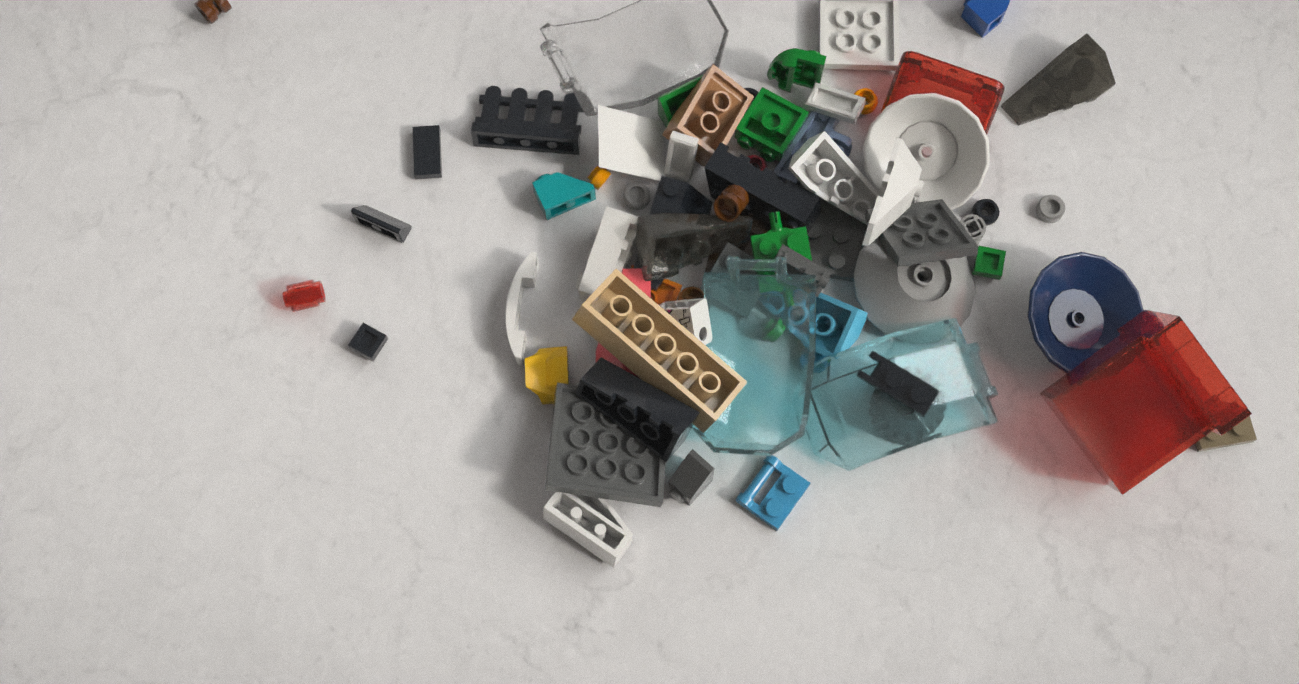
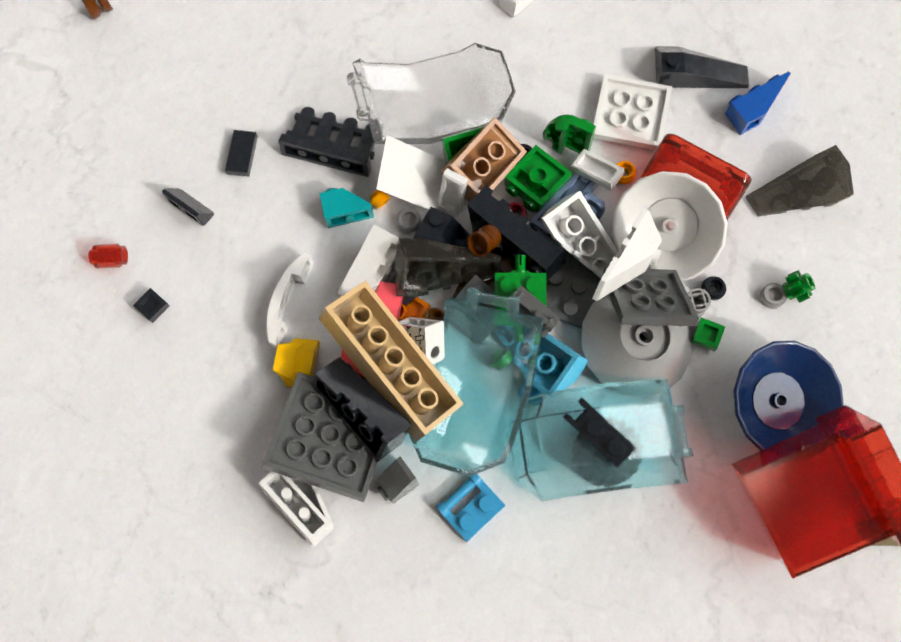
camera: 15 degrees right, 0 degrees up
(1075, 193) = (798, 286): none -> green gear

